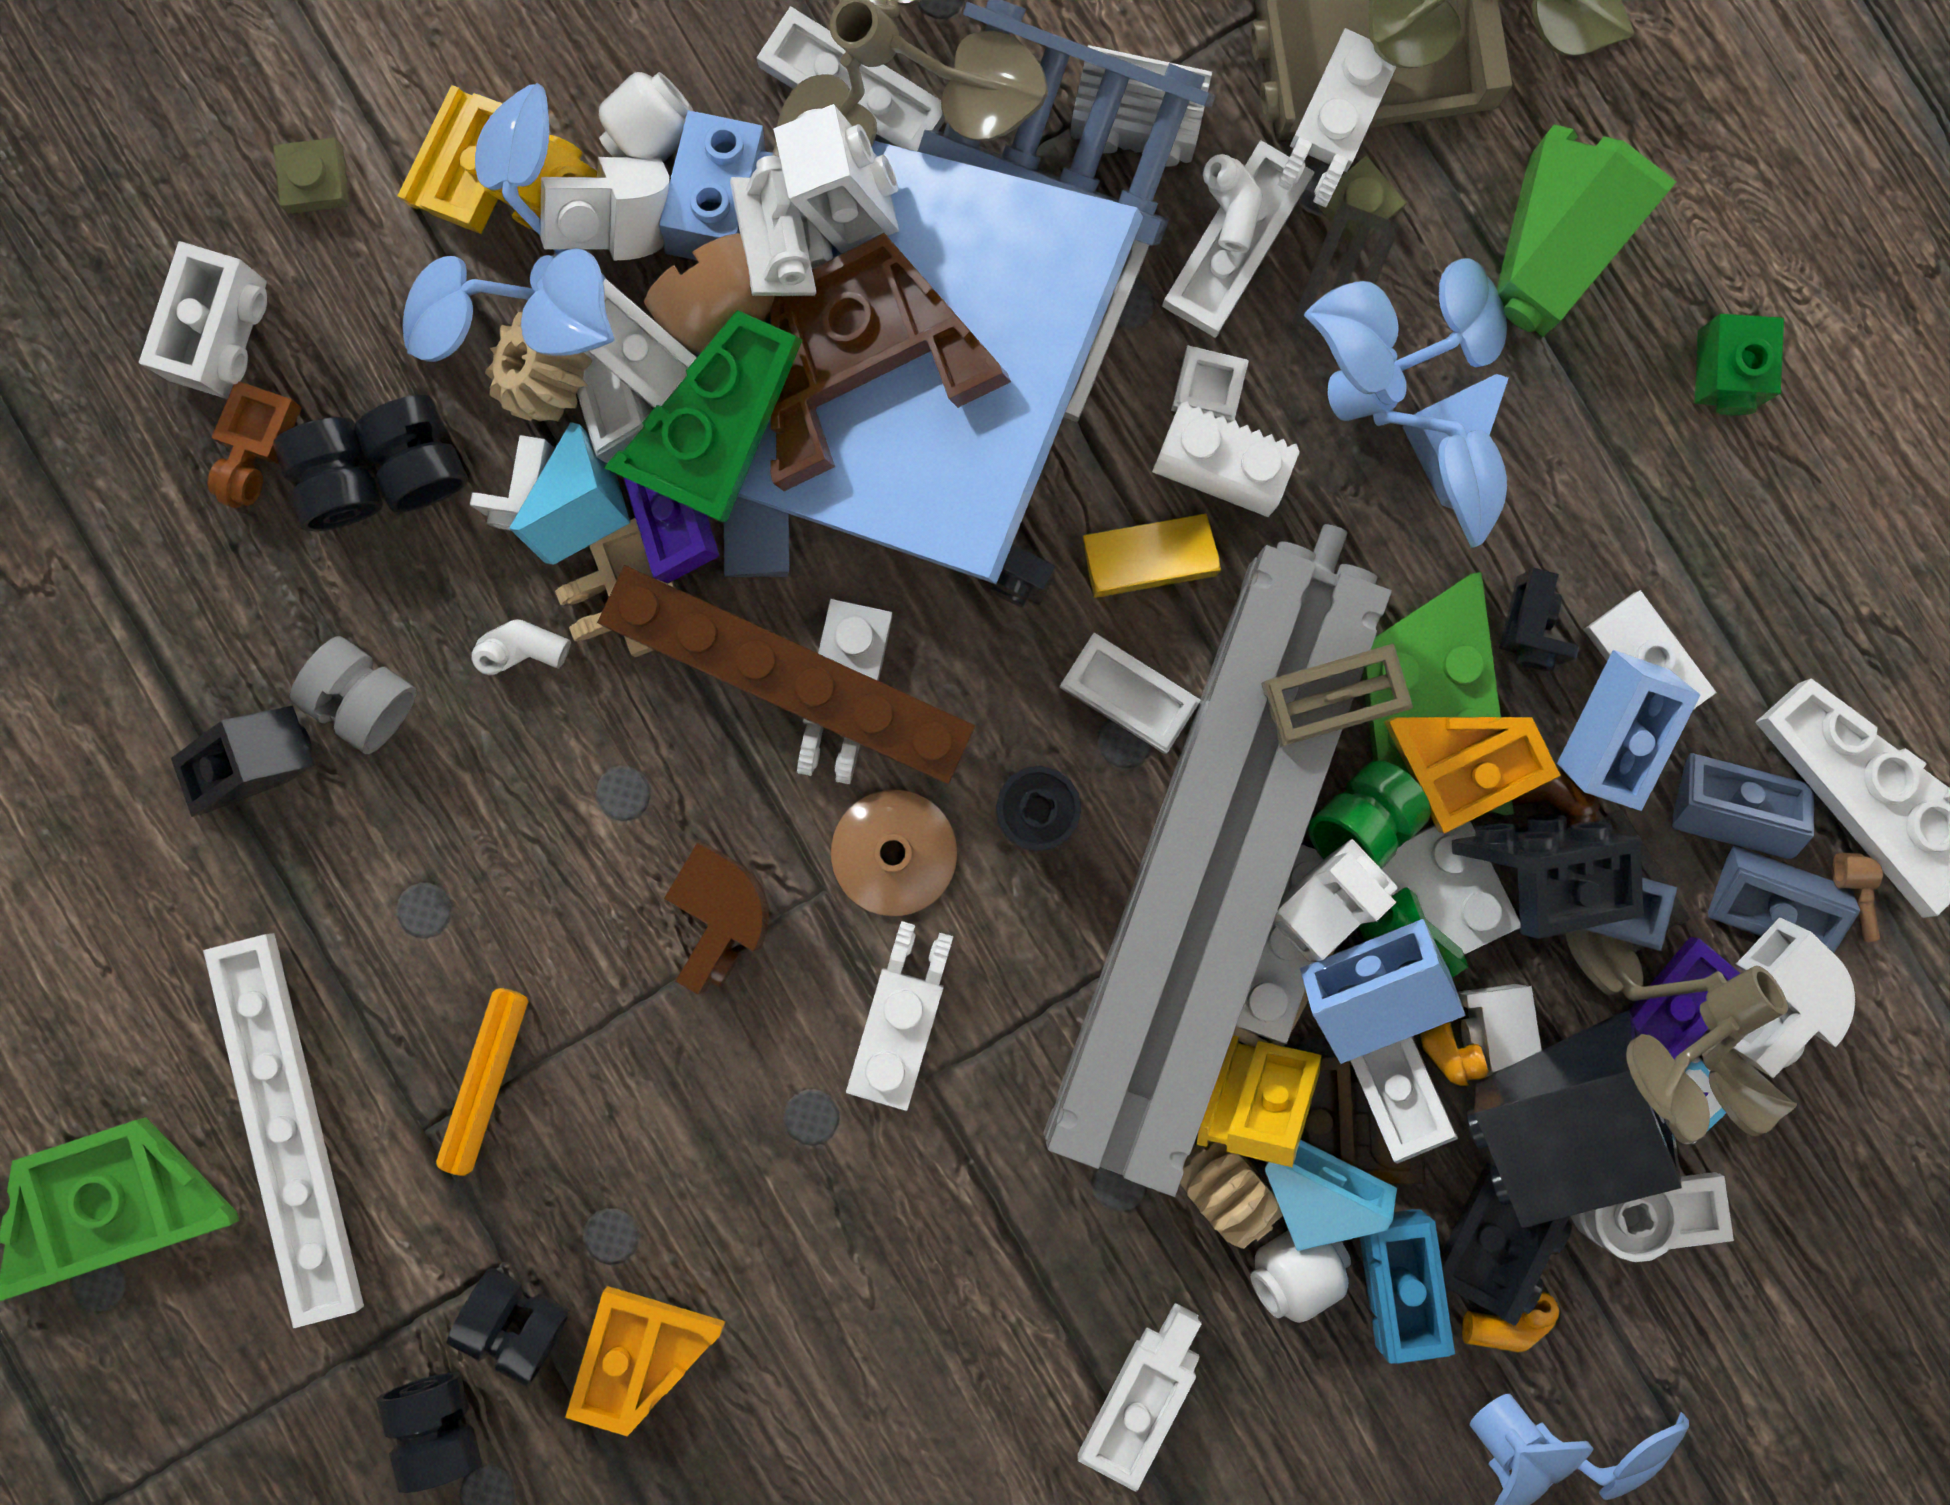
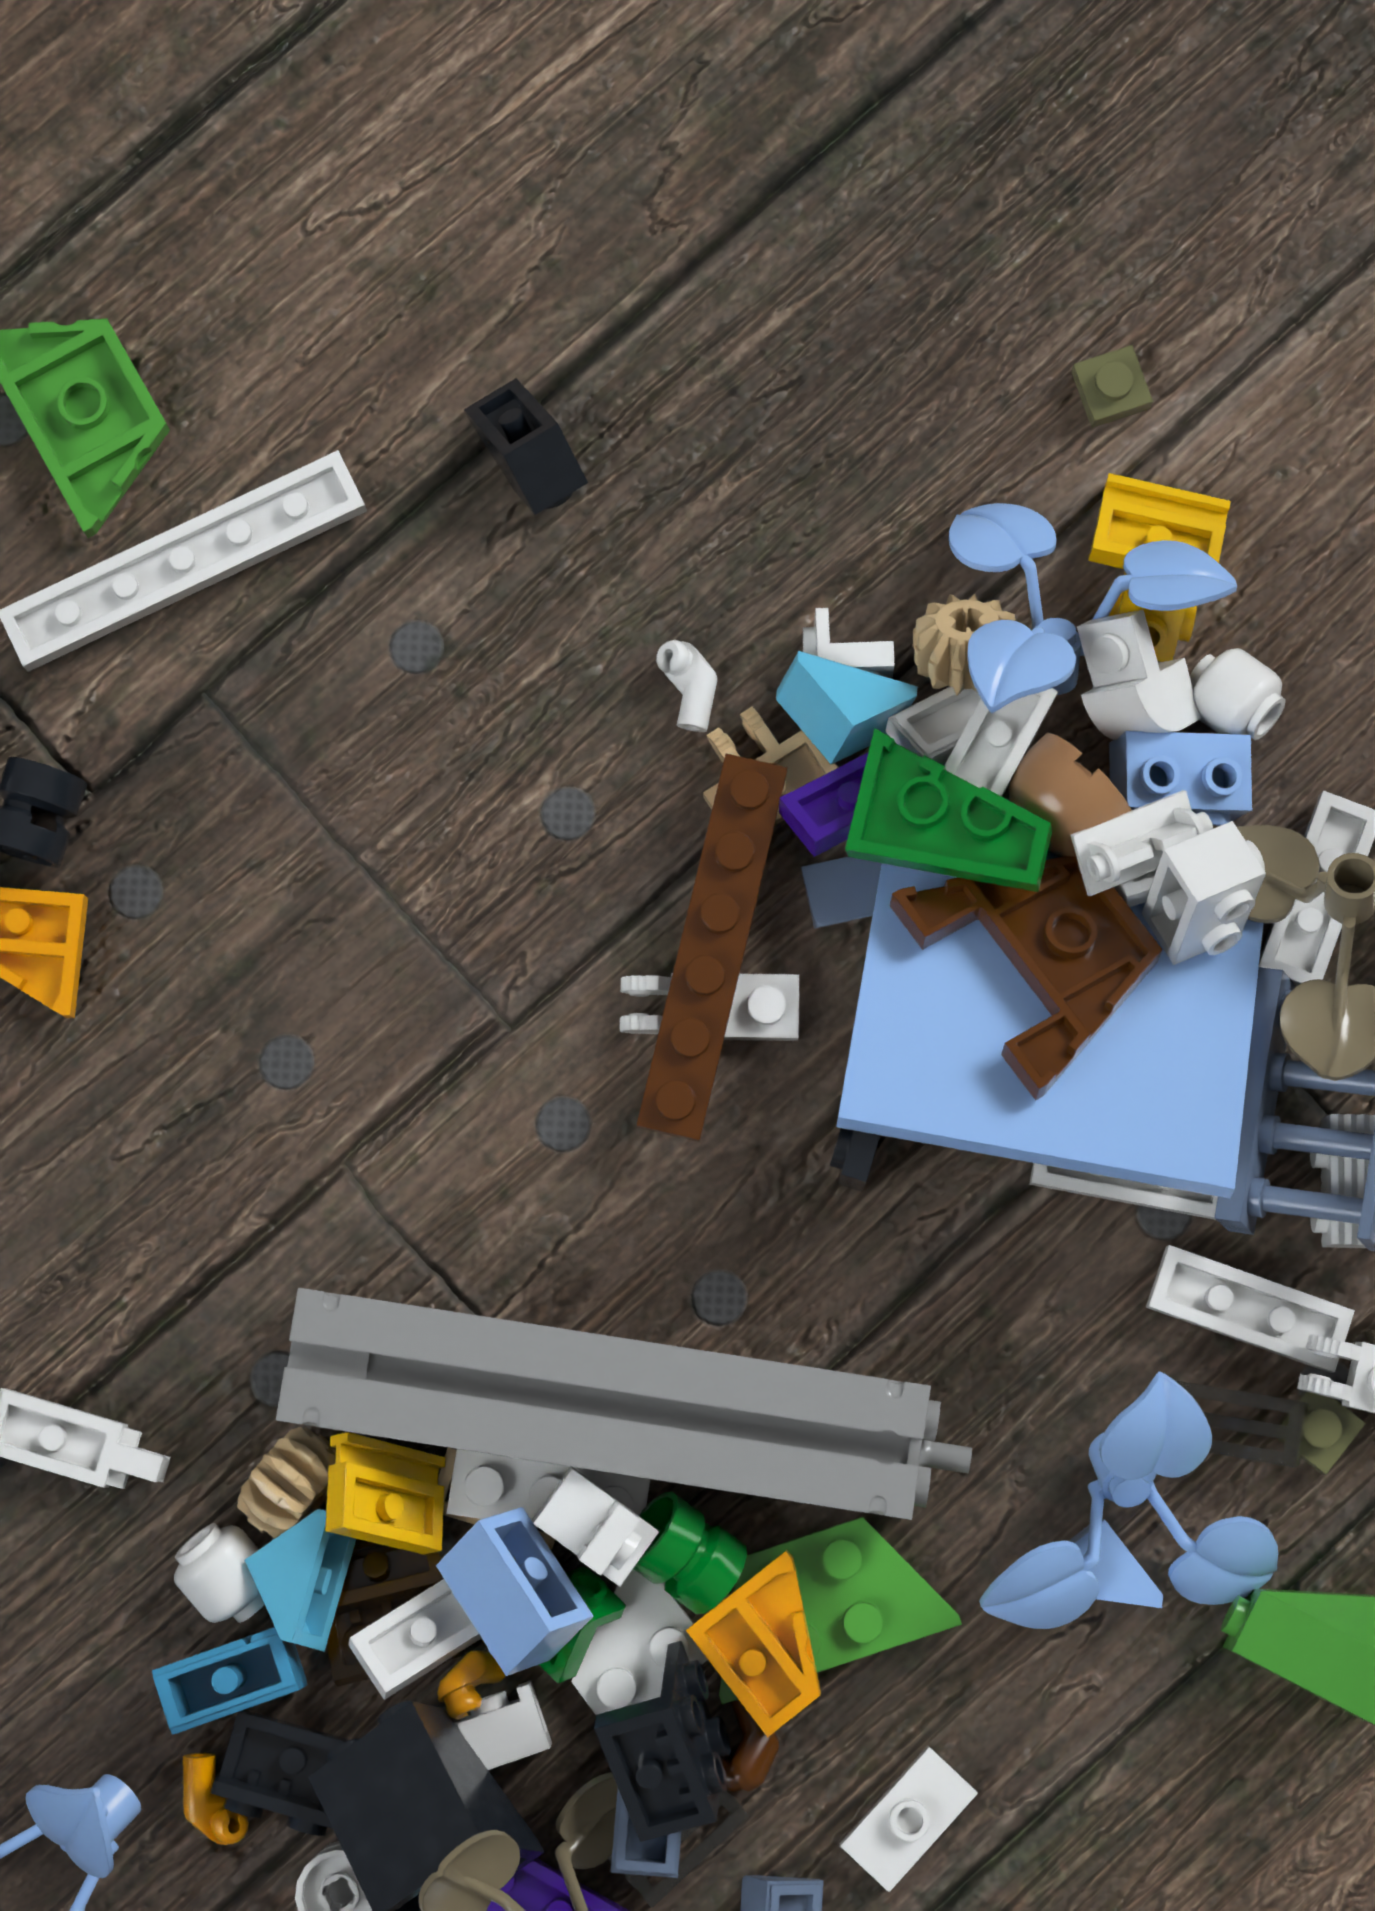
camera: 80 degrees right, 5 degrees down
(204, 320) = (942, 321): white brick -> none
(248, 427) = (852, 387): dark orange plate -> none
(325, 464) = (825, 463): black wheel -> none
(344, 688) = (611, 533): light grey wheel -> none
(408, 445) = (861, 537): black wheel -> none
(482, 1082) = (262, 737): light orange axle -> none
(730, 903) = (480, 937): reddish brown brick -> none
(898, 1025) = (393, 1128): white hinge -> none
(927, 861) = (568, 1122): medium nougat dish -> none
(1038, 808) = (630, 1218): black wheel -> none
(1130, 693) = (766, 1291): white tile -> none
(1151, 555) = (910, 1284): yellow slope -> none
(1210, 382) = (1096, 1310): white tile -> none
(1226, 460) = (1019, 1338): white brick -> none
(1238, 197) = (1287, 1298): white arm -> none
(1281, 711) = (821, 1534): dark tan tile -> none
(1530, 613) = (933, 1683): black bracket -> none
(1627, 730) = (827, 1799): light blue brick -> none
(1739, 362) = (1233, 1852): green brick -> none

